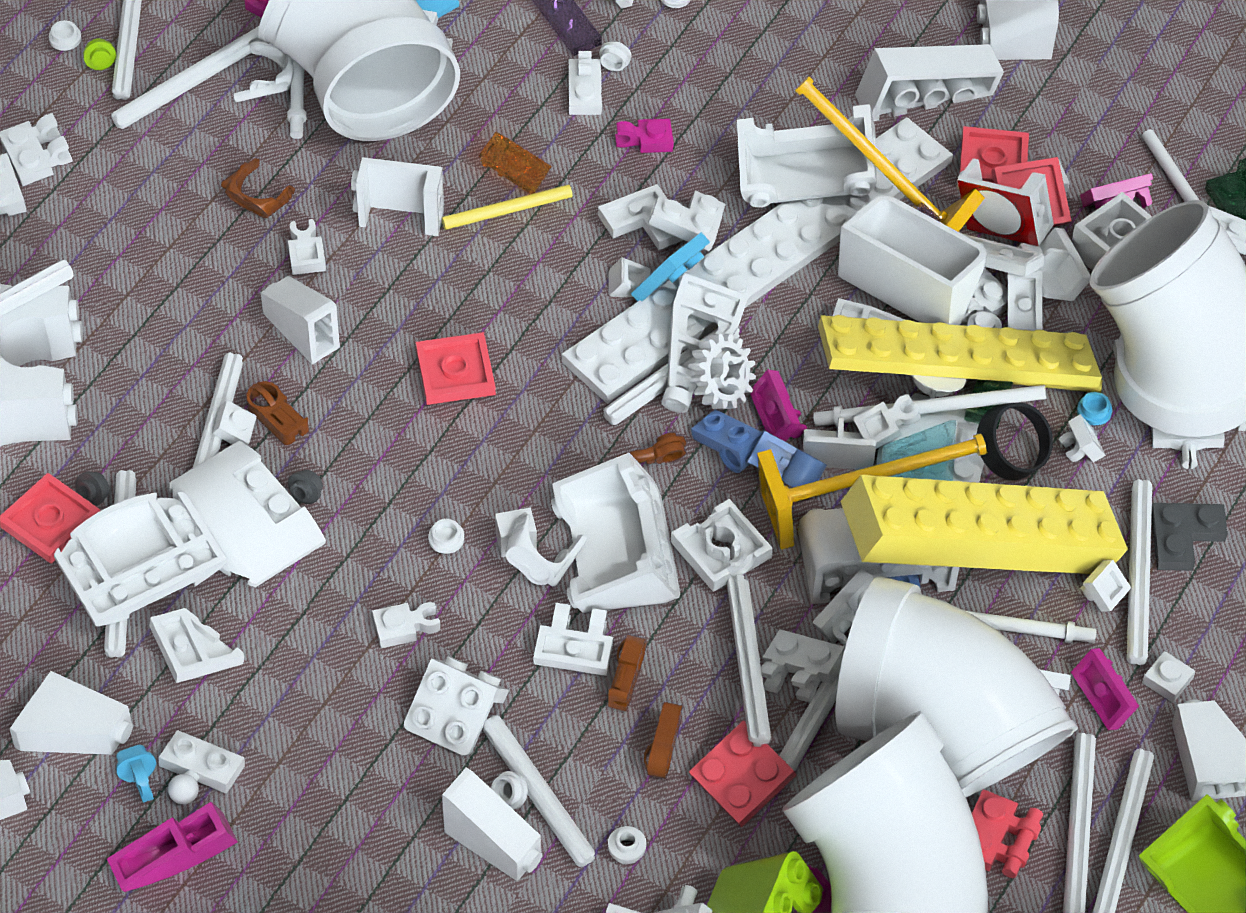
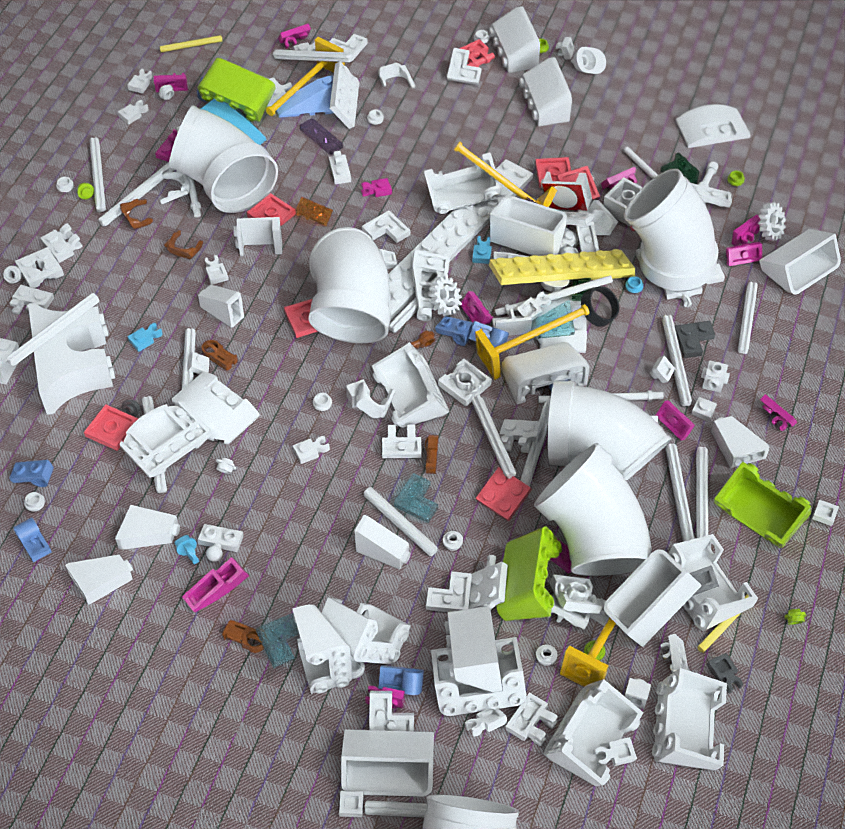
camera: 10 degrees left, 0 degrees up
(145, 358) = (144, 338): none -> medium azure plate
(168, 100) = (126, 209): none -> dark orange helmet
(190, 646) = (201, 480): white wing -> none
(240, 627) = (225, 465): none -> white plate
(305, 486) = (243, 389): dark grey plate -> none
(436, 145) = (272, 207): none -> coral plate
(453, 705) = (346, 486): white bracket -> none
(503, 784) = (390, 519): white plate -> none
(506, 207) = (313, 234): light yellow bar -> none
(541, 325) = (350, 287): none -> white cylinder
(569, 754) = (412, 500): none -> clear light blue plate
(614, 56) = (352, 151): white plate -> none
(664, 741) = (459, 485): dark orange piece -> none
(673, 267) = (408, 249): medium azure wing -> none
(686, 223) = (414, 224): white plate -> none
(818, 294) = (482, 251): none -> medium azure plate
(840, 612) = (537, 401): white plate -> none
(927, 77) = (512, 137): white wedge -> none
(981, 525) = (596, 348): light yellow brick -> none
(996, 817) = (652, 496): coral plate -> none
(1085, 441) = (633, 300): white tile -> none
(1204, 616) = (715, 376): none -> white brick

